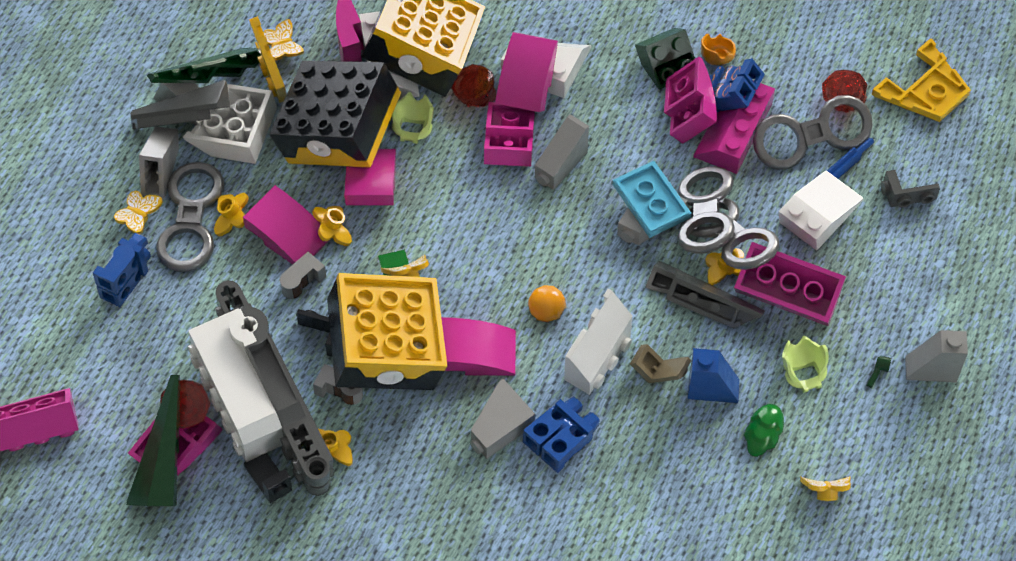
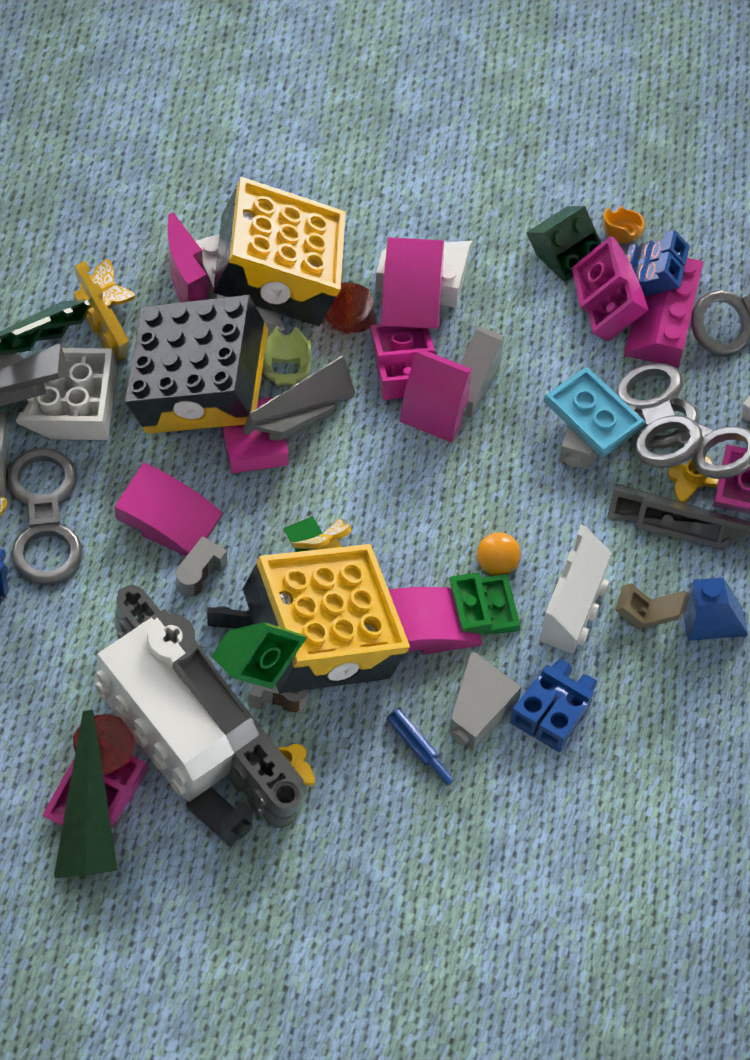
camera: 15 degrees left, 0 degrees up
(231, 213) = (95, 504): yellow animal -> none
(315, 350) = (258, 653): none -> green slope
(331, 225) = (220, 496): yellow animal -> none
(415, 156) = (303, 403): none -> dark grey wedge
(442, 446) = (418, 743): none -> blue axle
(522, 166) = (435, 395): none -> dark pink slope
(524, 342) = (484, 604): none -> green slope

